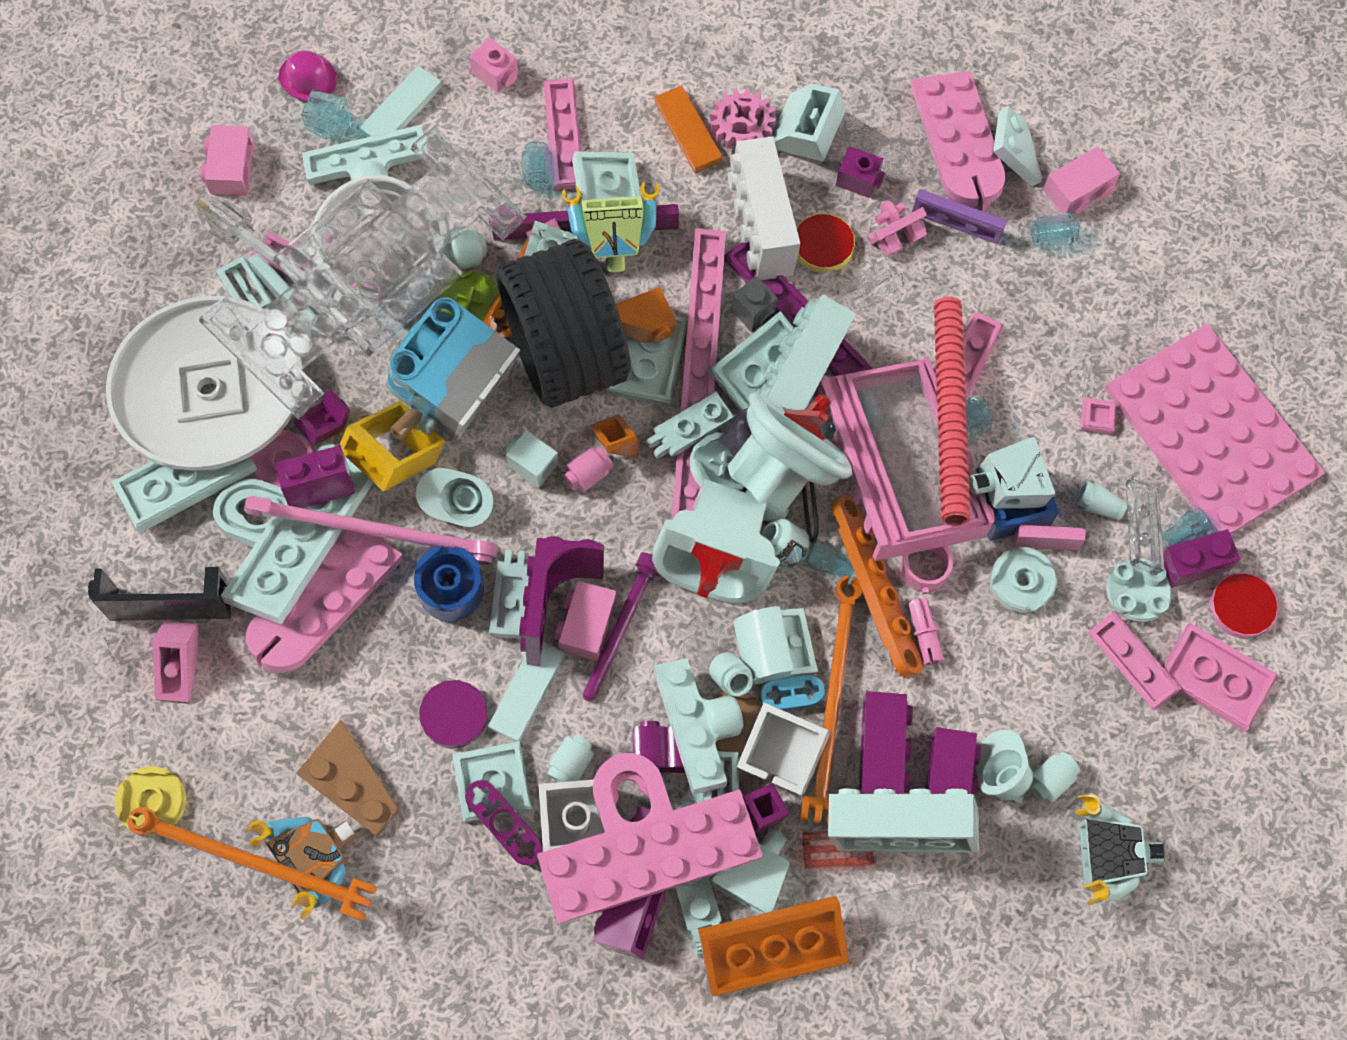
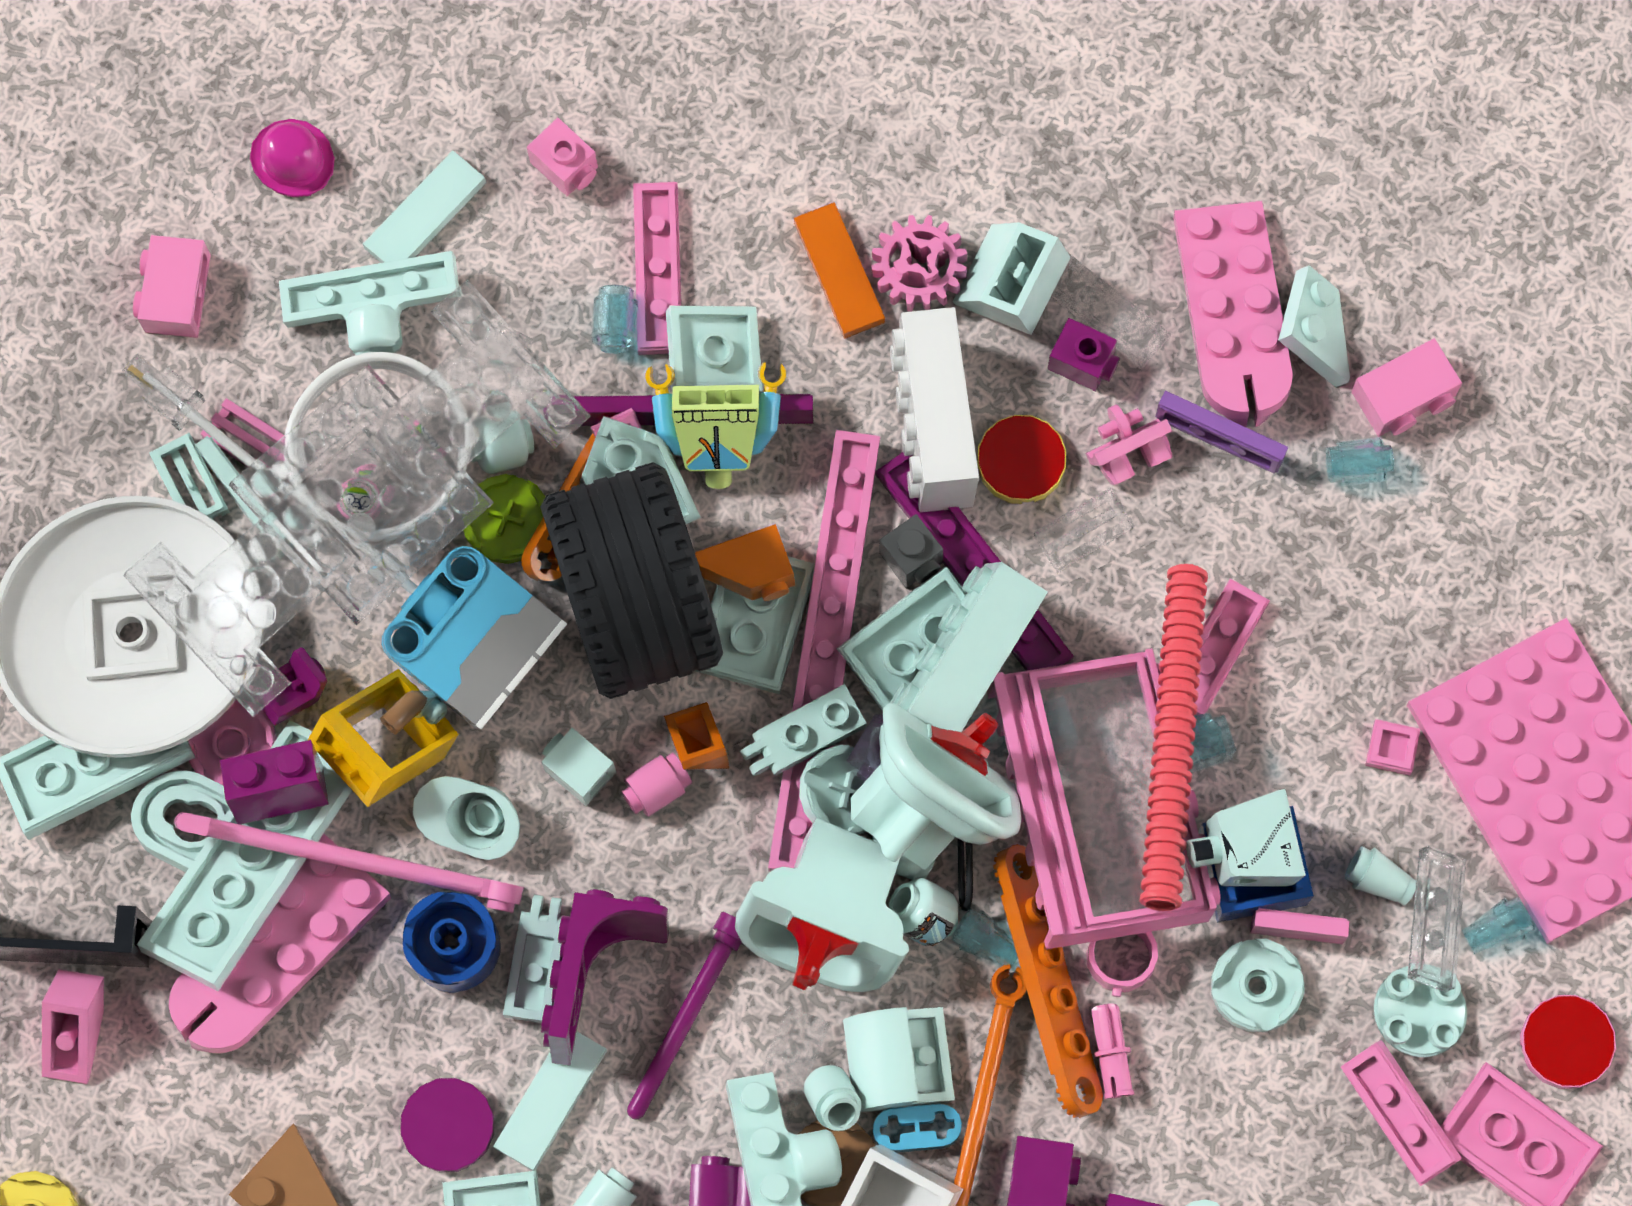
camera: 10 degrees right, 5 degrees up
(326, 115) = (316, 224): clear light blue brick -> none
(586, 621) = (638, 1006): bright pink brick -> none
(1200, 558) = (1509, 972): magenta brick -> none

